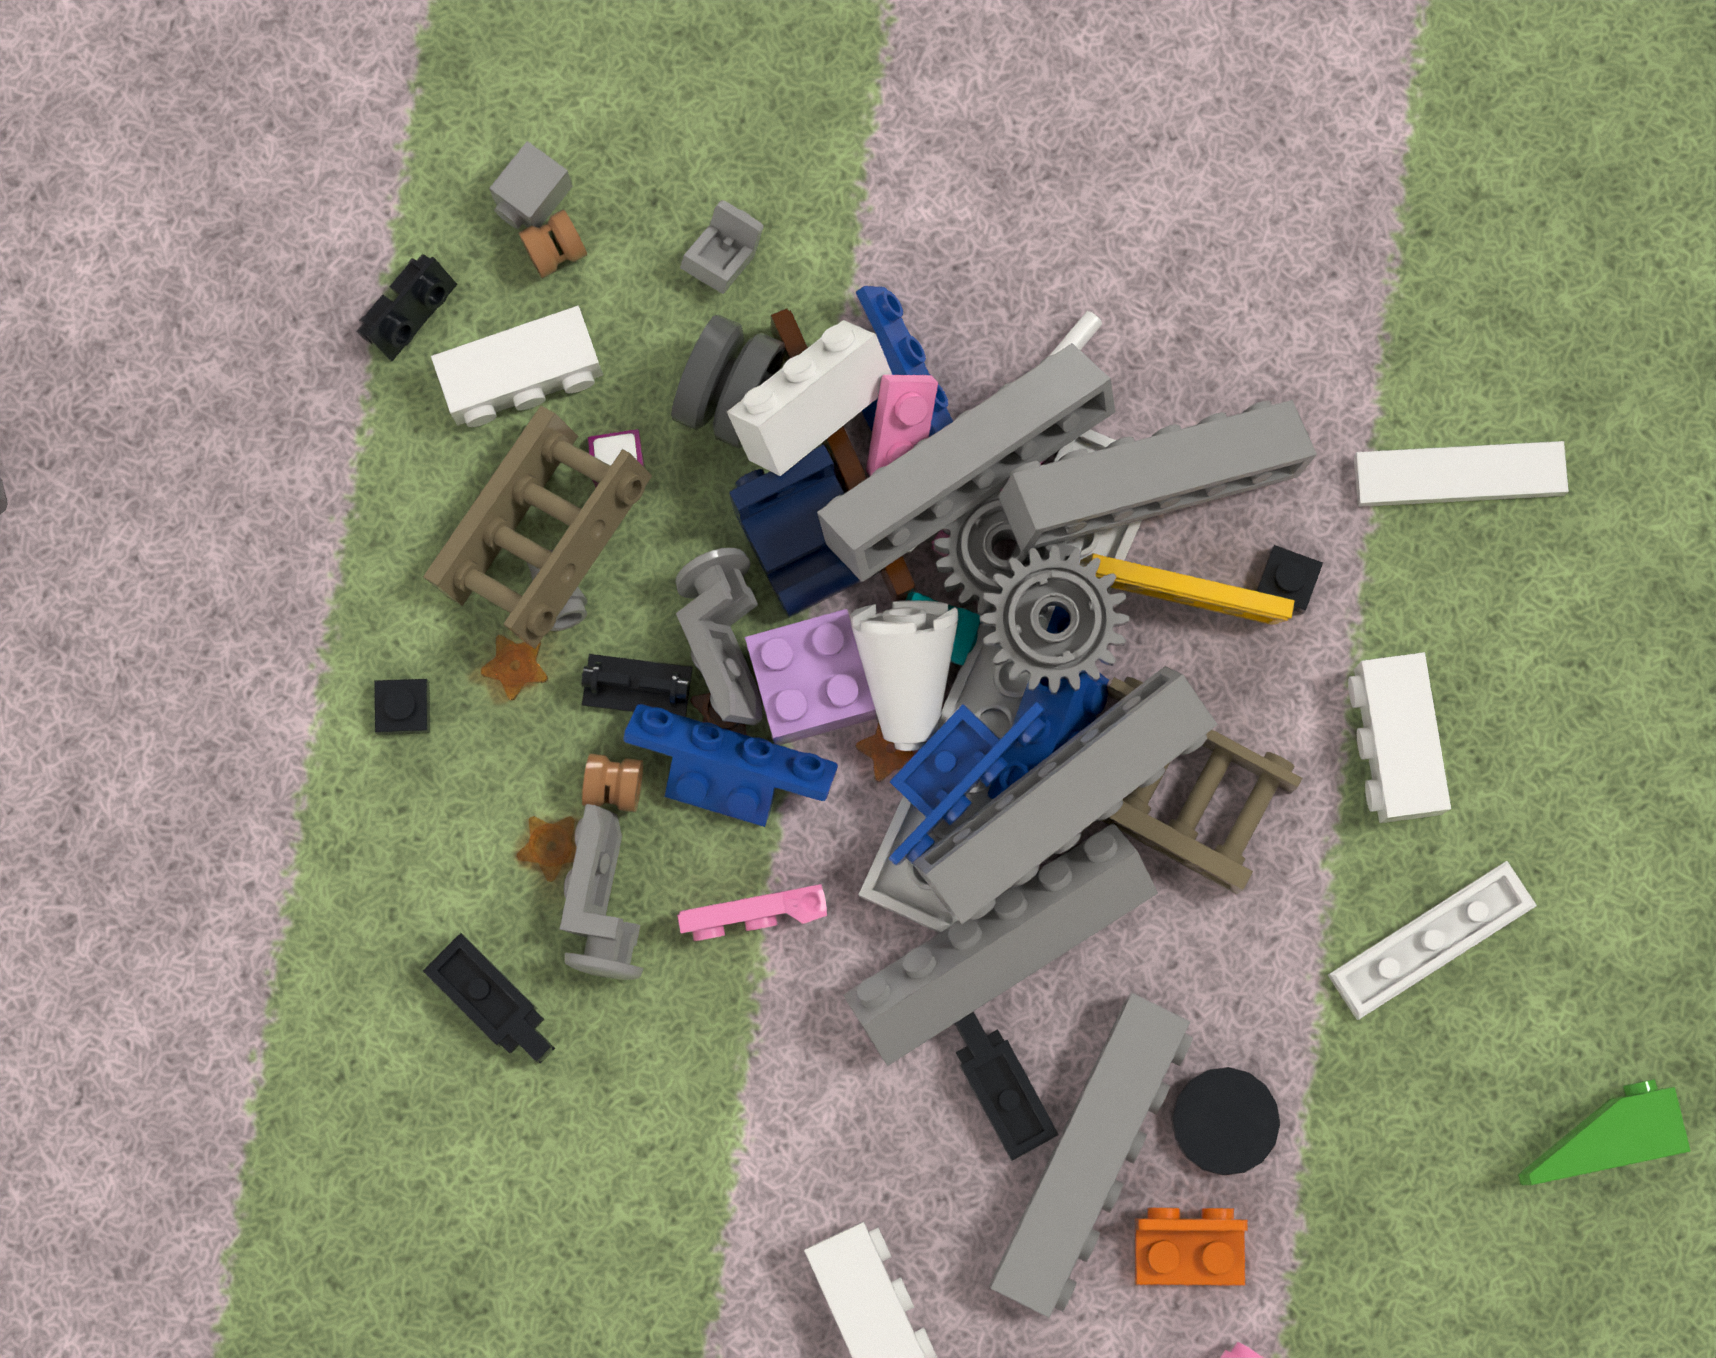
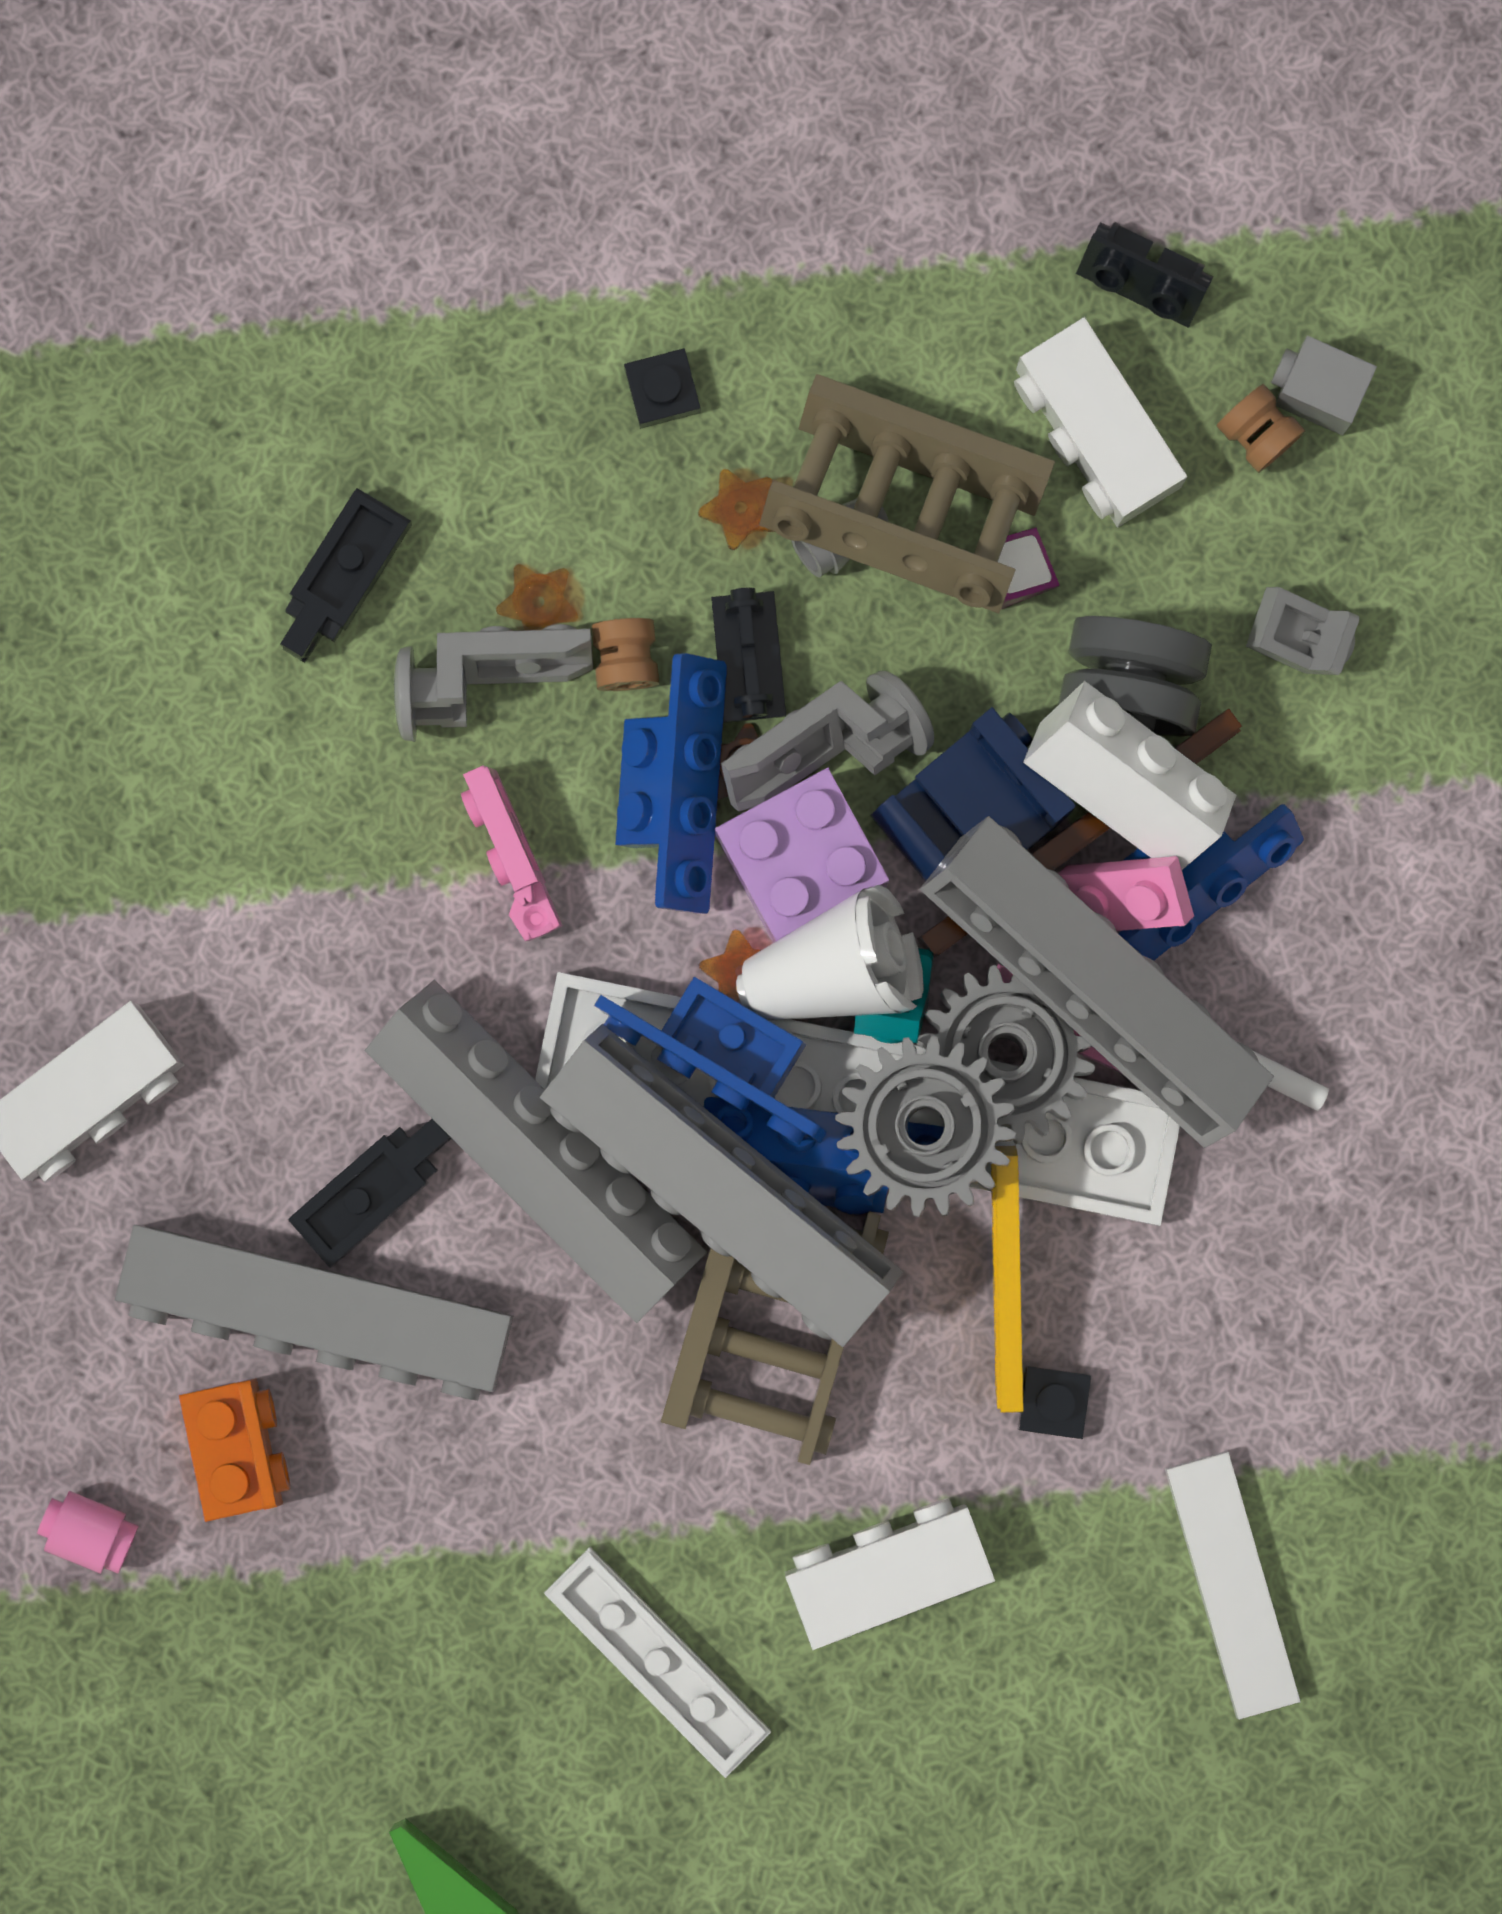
camera: 70 degrees right, 5 degrees up
(1155, 474) = (1135, 1212): light grey brick -> none
(1225, 1121) = (390, 1460): black tile -> none

